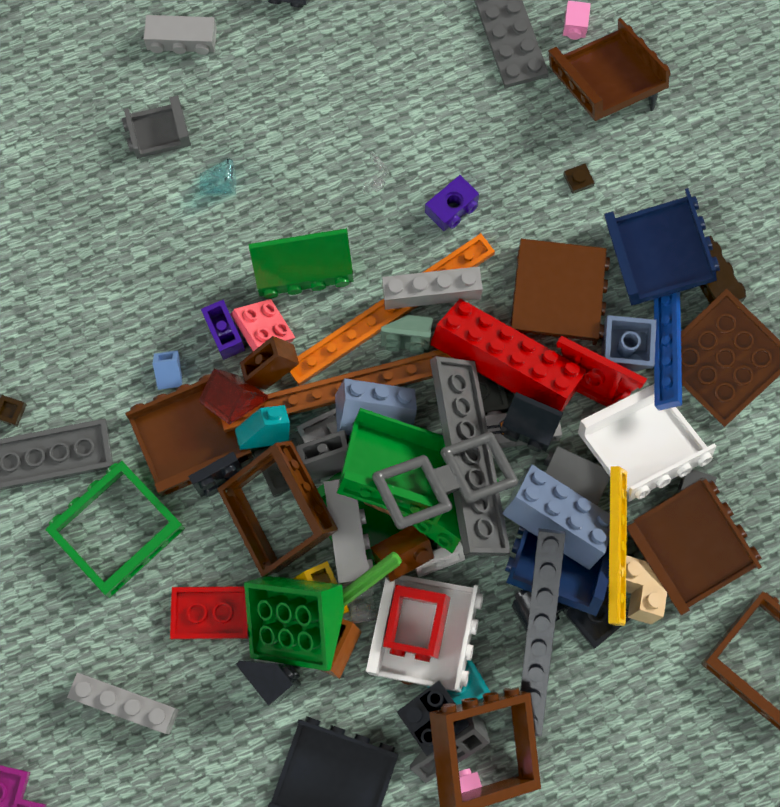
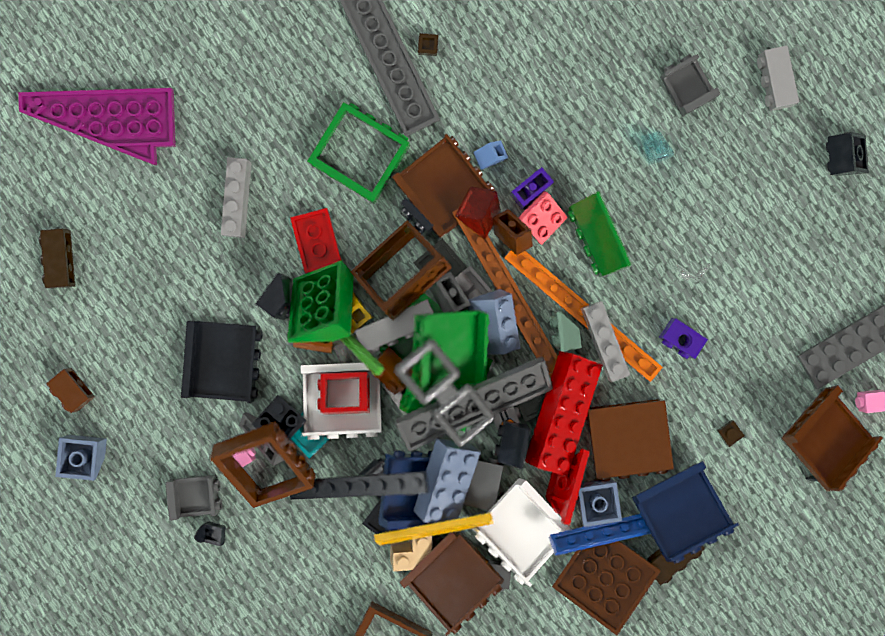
camera: 80 degrees right, 15 degrees up
(264, 428) = (460, 242): teal slope -> none

